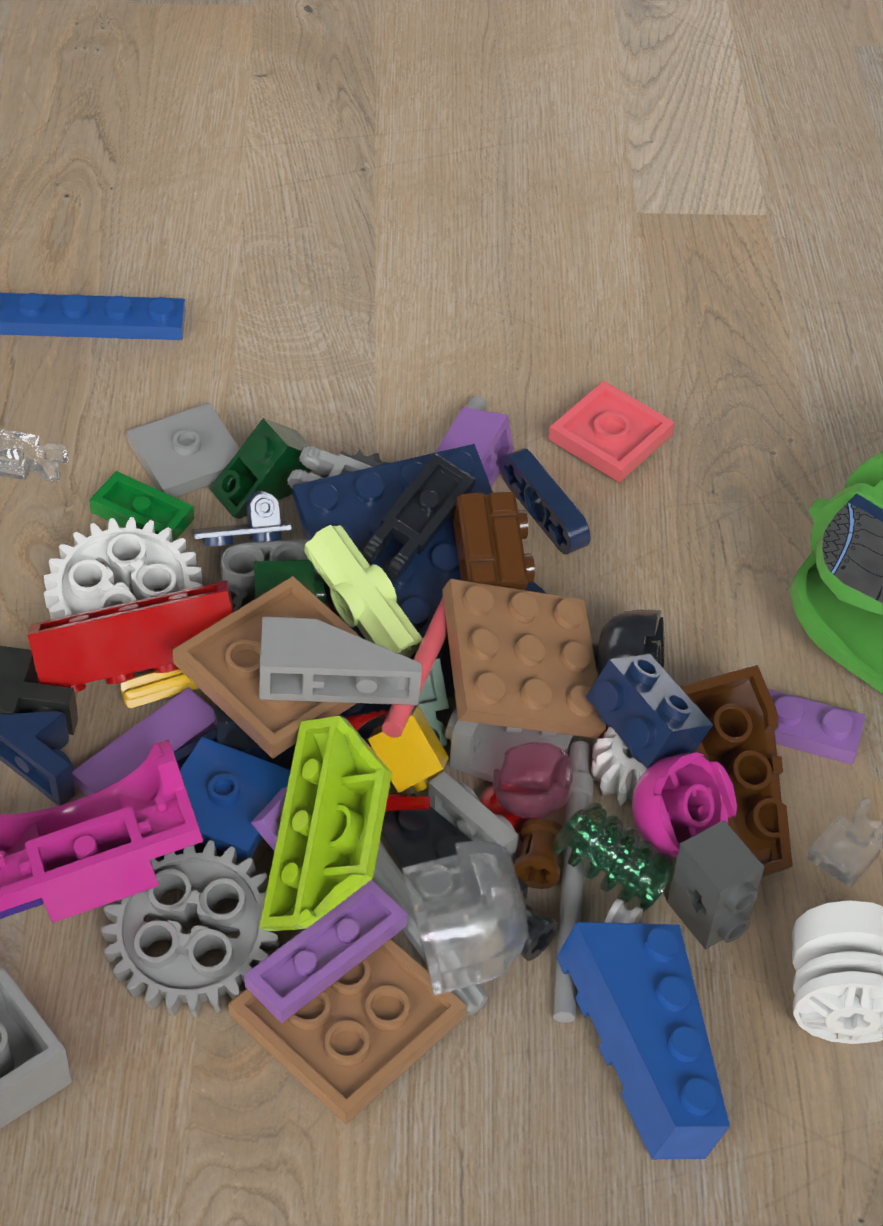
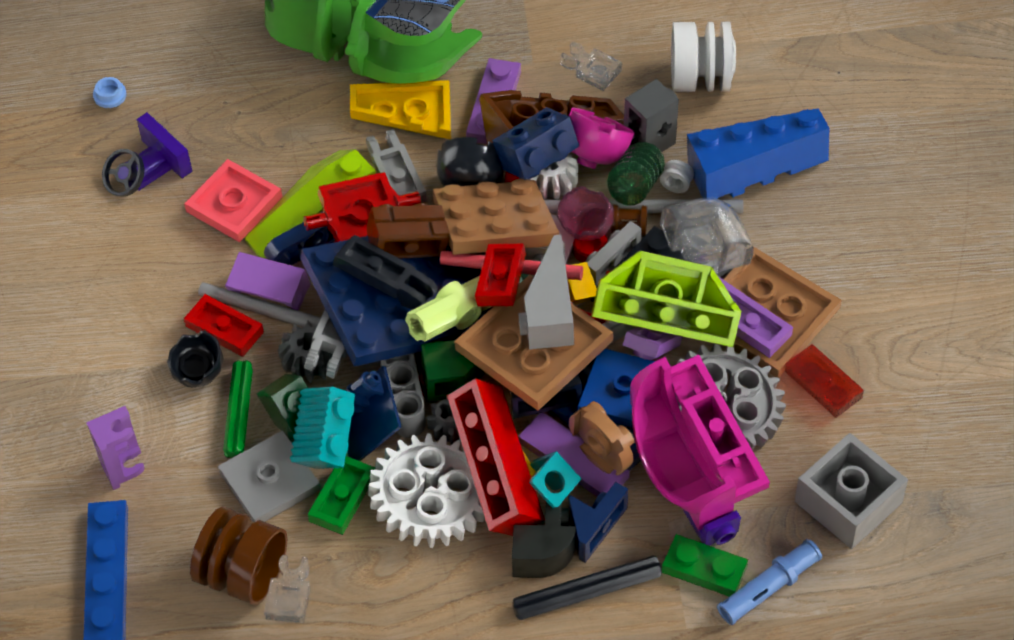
camera: 90 degrees left, 5 degrees up
(63, 394) = (238, 555): none -> reddish brown wheel
(104, 702) = (557, 475): none -> teal bracket
(122, 739) = (603, 441): none -> medium nougat plate
(205, 1070) = (824, 380): none -> clear red plate
(215, 471) = (322, 427): none -> teal brick
(235, 302) = (115, 445): none -> medium lavender hinge
(312, 428) = (238, 408): none -> green axle
(360, 385) = (195, 359): none -> black hair
(387, 622) = (500, 275): none -> red plate
(413, 415) = (227, 325): none -> red plate
(564, 528) = (349, 204): none -> red plate
(624, 527) = (303, 197): none -> lime wedge
(666, 588) = (396, 165): none -> light grey hinge
(685, 368) = (161, 156): none -> dark purple piece
(764, 623) = (408, 106): none -> yellow wing
(797, 326) = (109, 92): none -> light blue plate

